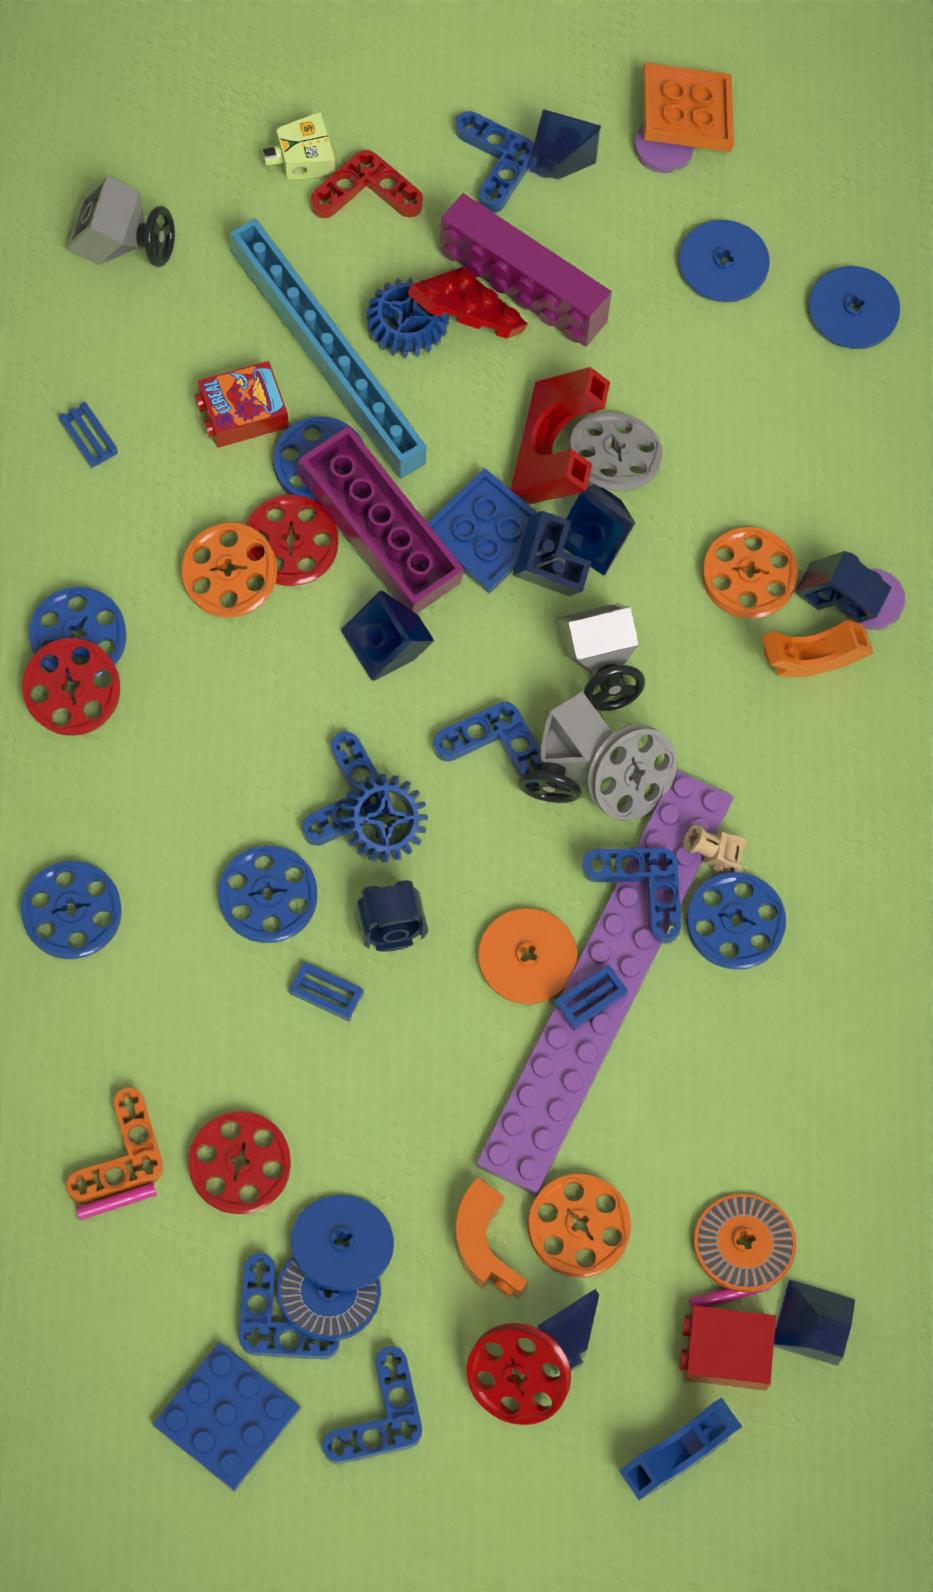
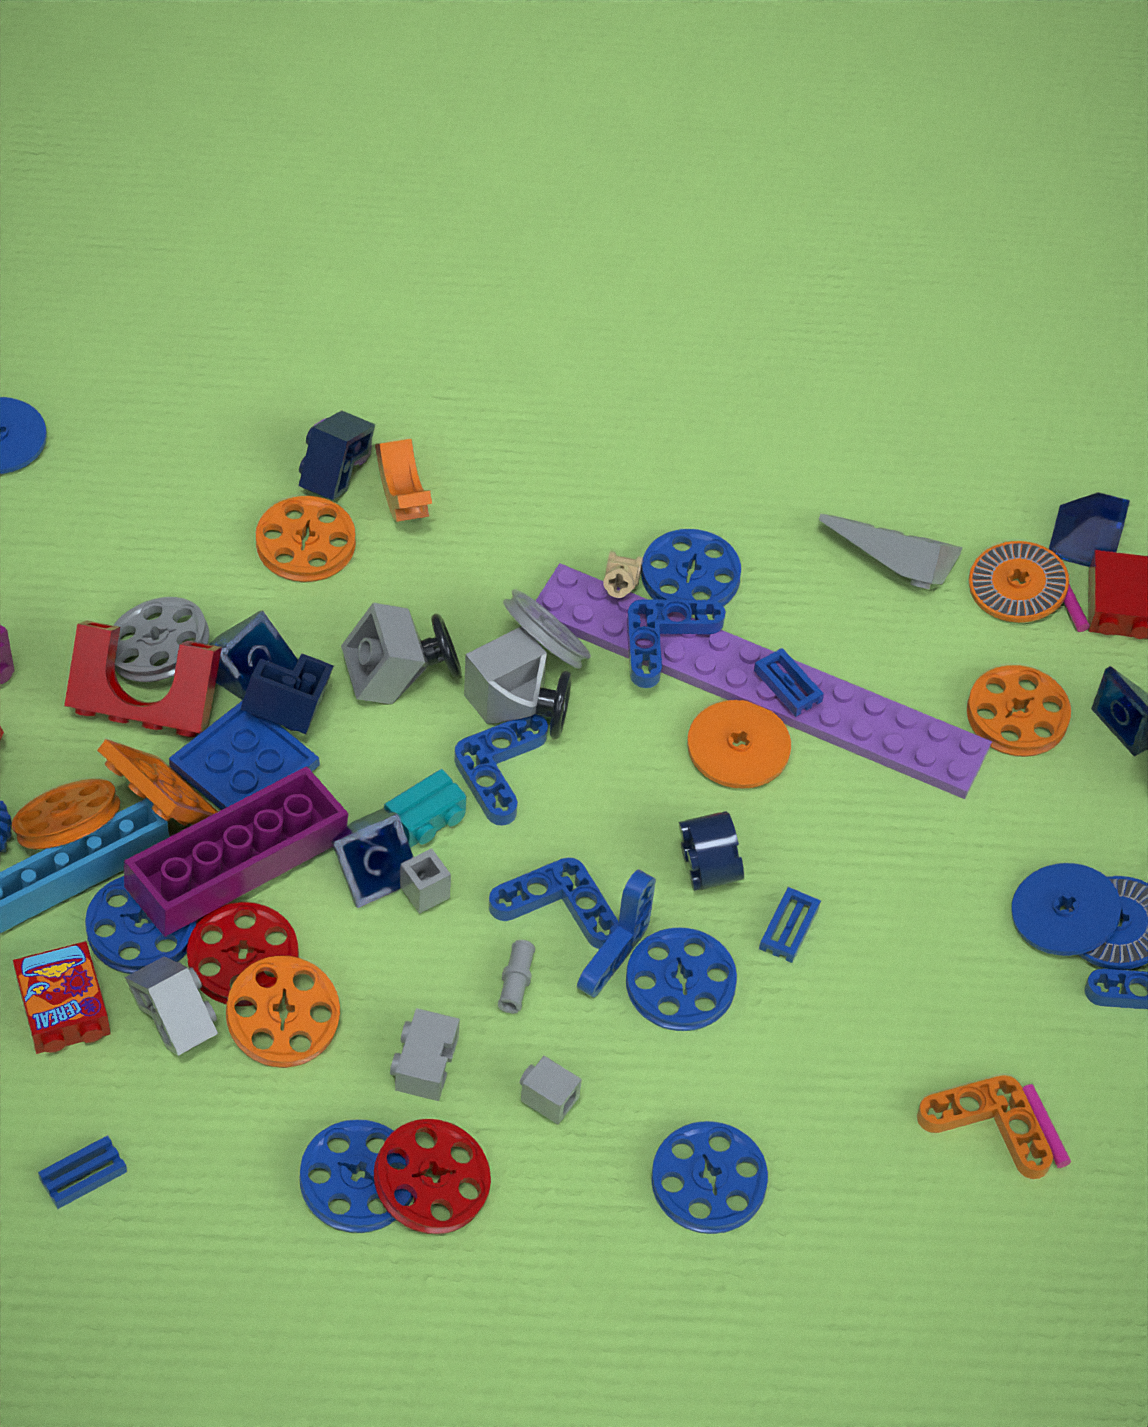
camera: 90 degrees left, 15 degrees down
(148, 777) = (550, 1089): none -> light grey brick
(187, 680) = (427, 1049): none -> light grey brick
(228, 478) = (173, 1000): none -> light grey brick
(249, 1175) = (977, 1018): red wedge -> none
(266, 755) = (516, 976): none -> light grey pin
(311, 840) = (633, 923): none -> blue beam
(356, 674) = (425, 880): none -> light grey brick
(383, 833) = (596, 855): blue gear -> none
(414, 388) = (66, 813): none -> orange wedge
(438, 455) = (158, 782): none -> orange plate
(438, 678) = (429, 807): none -> teal brick
(473, 1218) = (1045, 795): orange arch -> none
(769, 1126) = (910, 556): none -> light grey wedge

